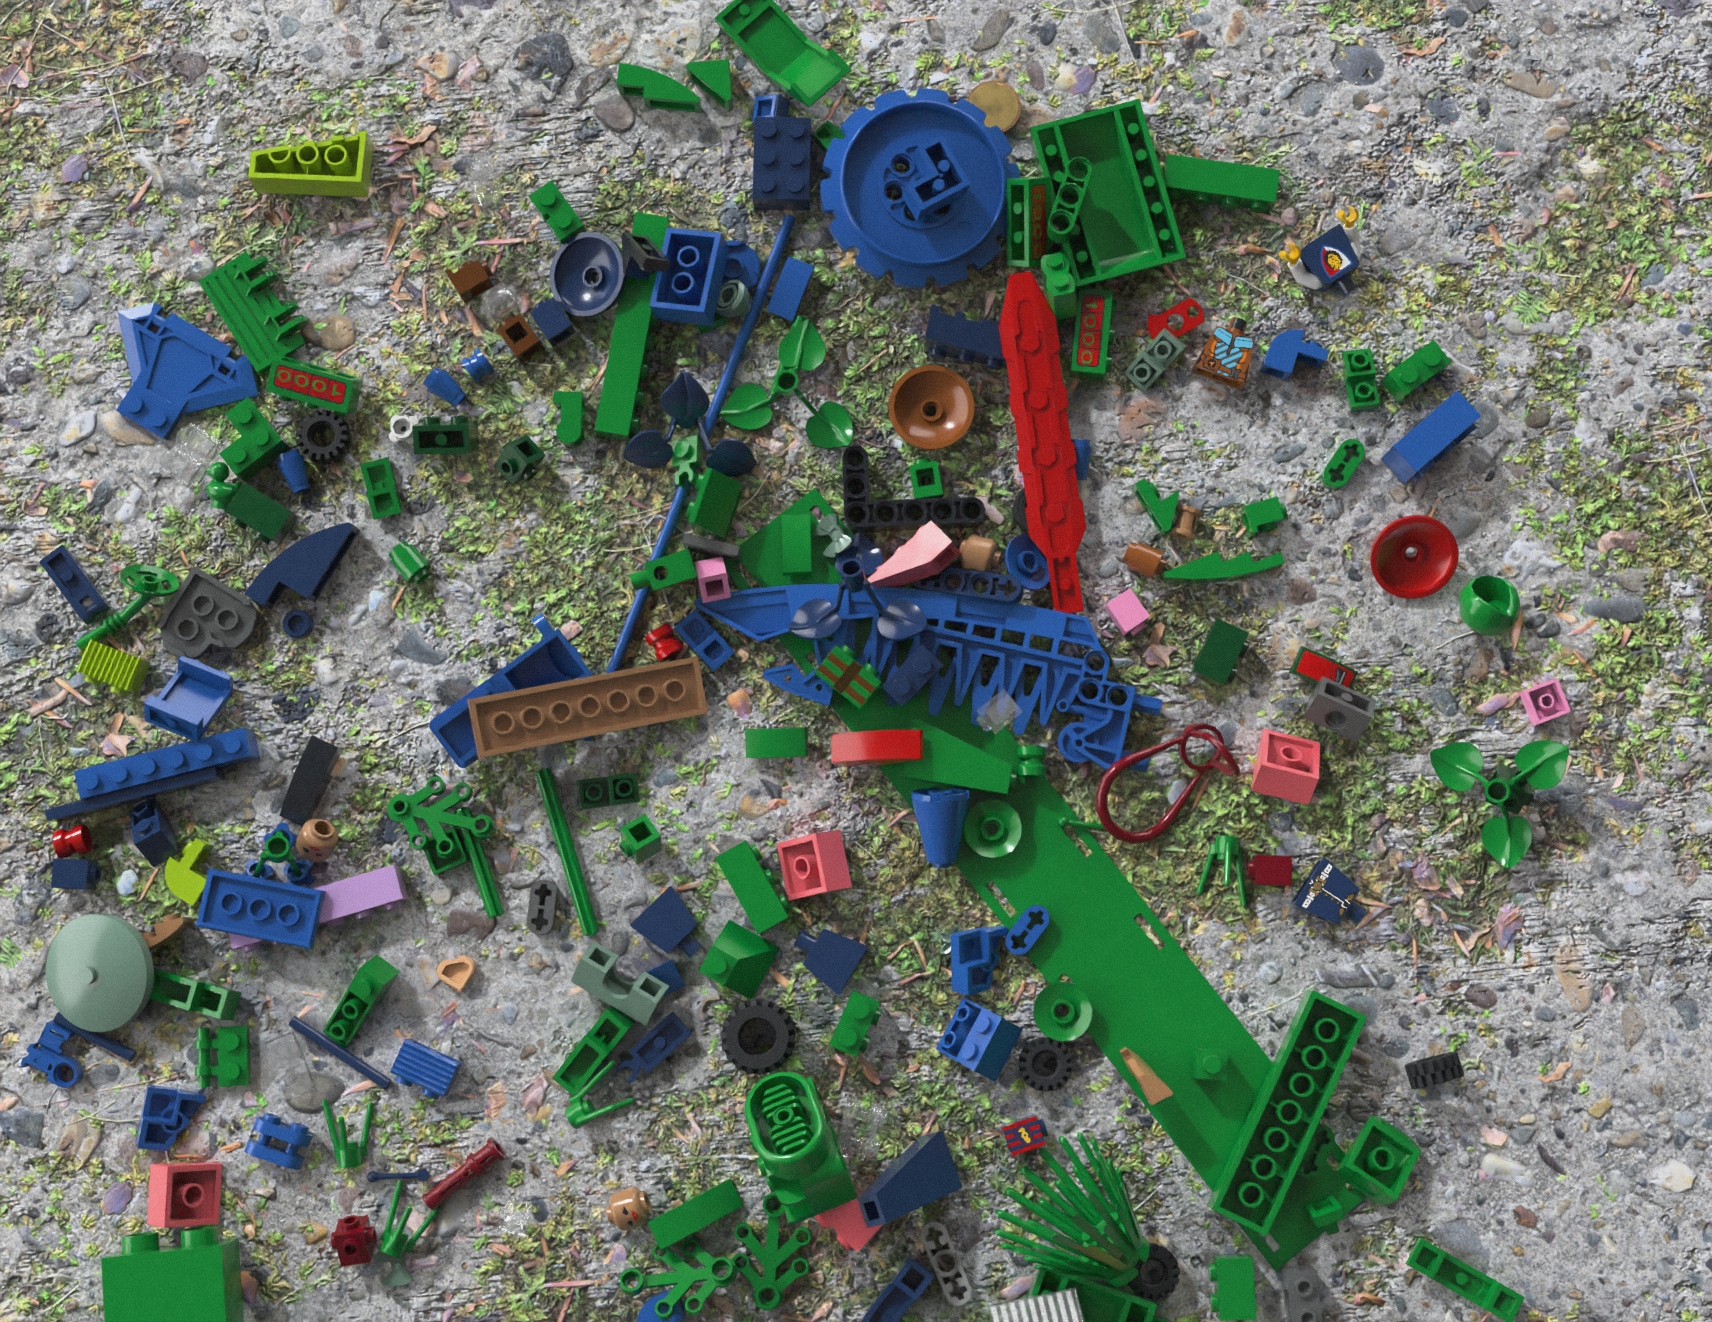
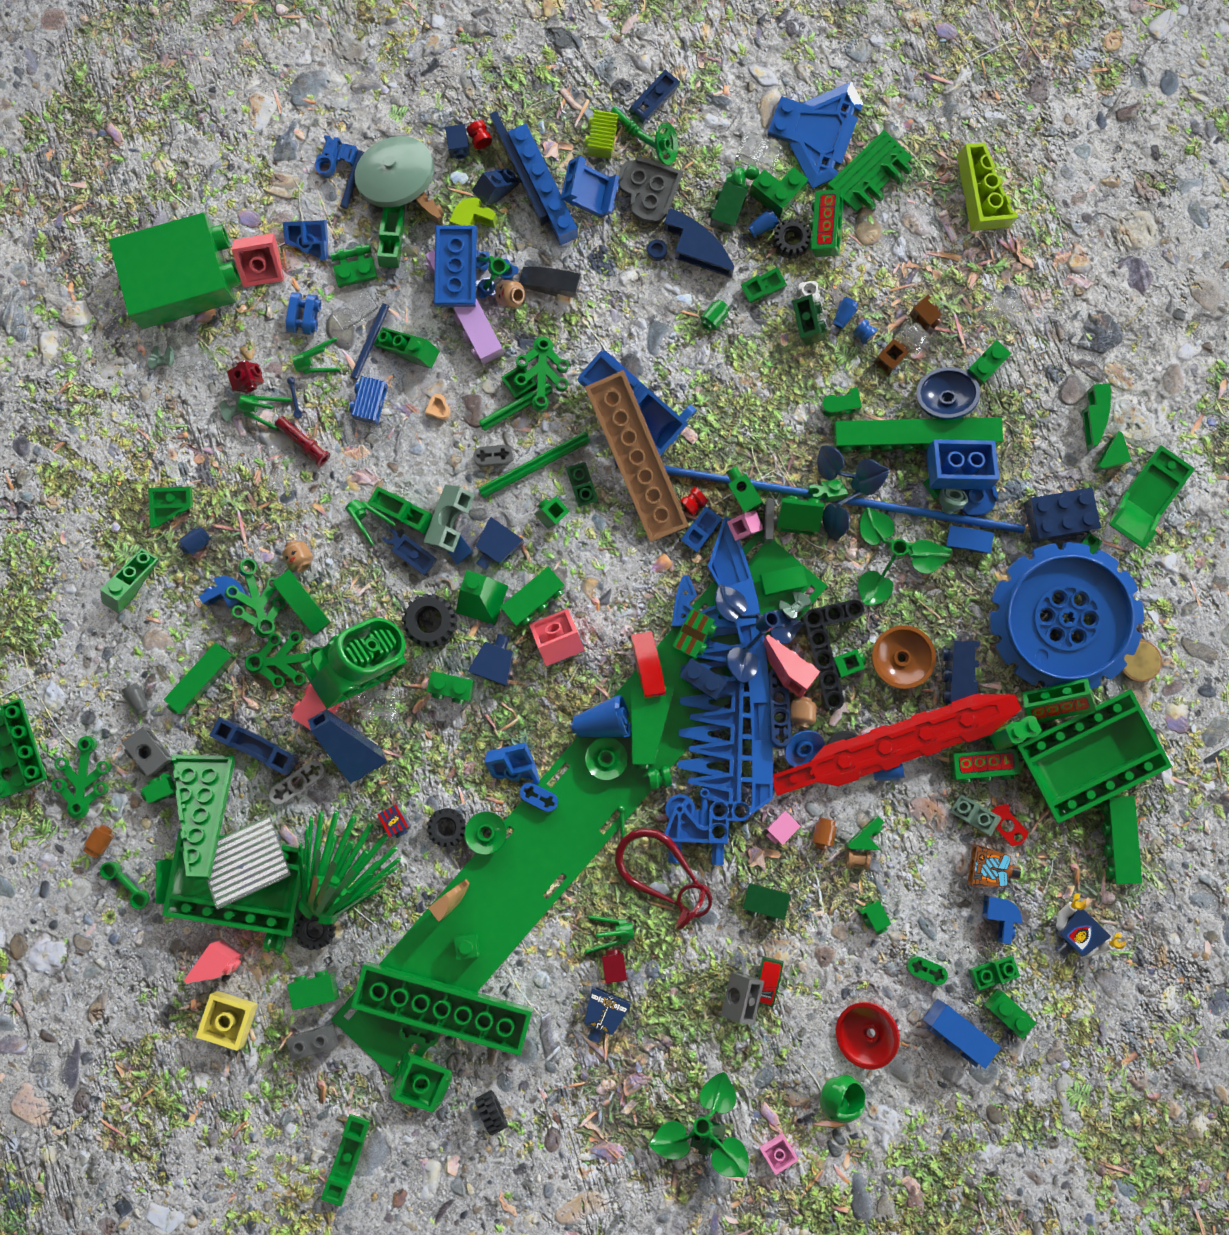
camera: 75 degrees right, 0 degrees up
(519, 460) = (803, 374): dark green brick -> none
(552, 321) = (908, 376): dark blue brick -> none
(641, 256) = (969, 427): black slope -> none
(770, 106) = (1103, 499): blue slope -> none
(776, 742) = (638, 594): green slope -> none
(941, 180) = (1072, 629): blue brick -> none
(979, 1039) = (455, 777): blue slope -> none
(998, 712) = (690, 746): clear brick -> none
(1069, 187) = (1092, 727): green beam -> none
(1212, 569) = (827, 885): green slope -> none
(1286, 767) = (692, 965): coral slope -> none
(1326, 1214) = (375, 1049): green tile -> none

